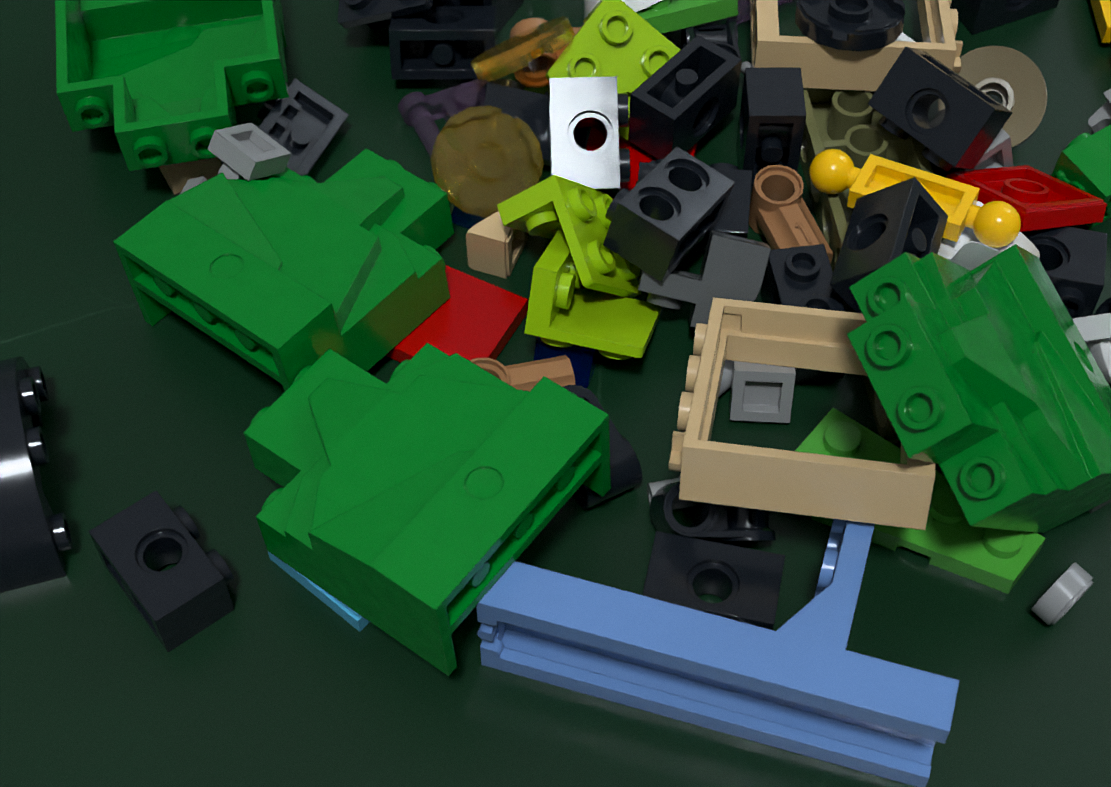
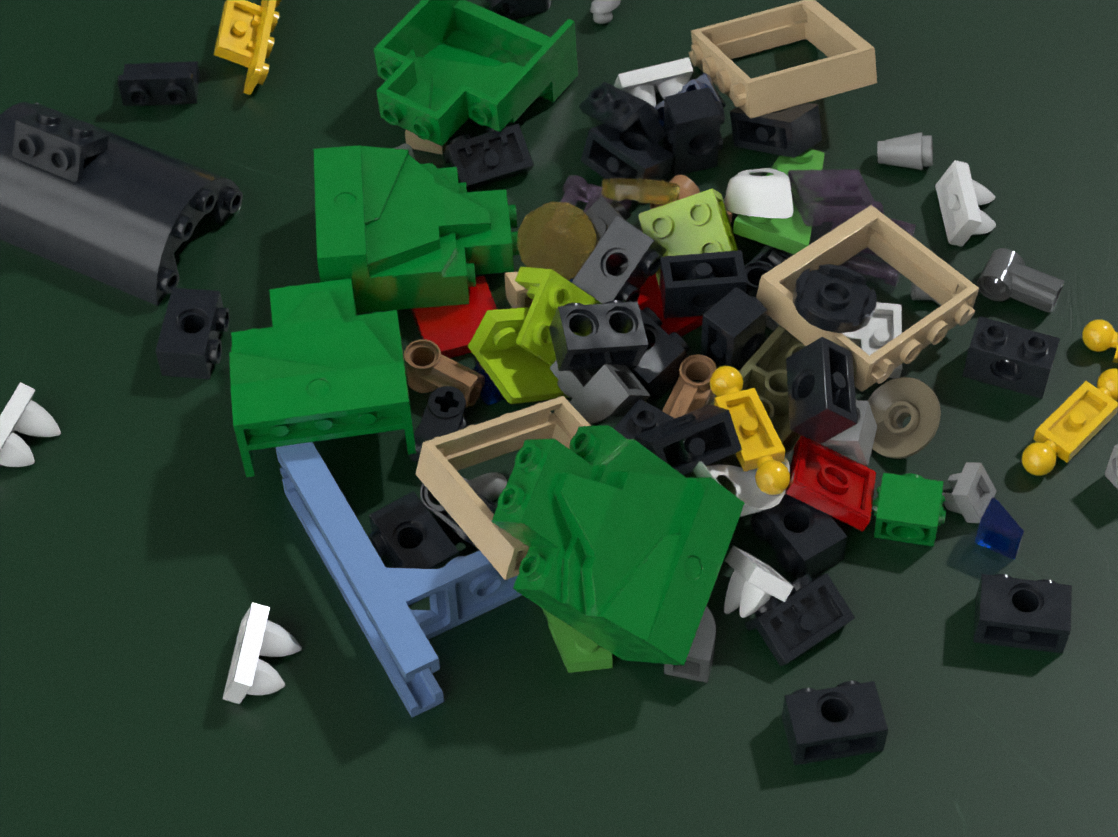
camera: 45 degrees right, 0 degrees up
(248, 152) = (435, 148): light grey tile -> none
(1063, 594) = (582, 689): light grey tile -> none

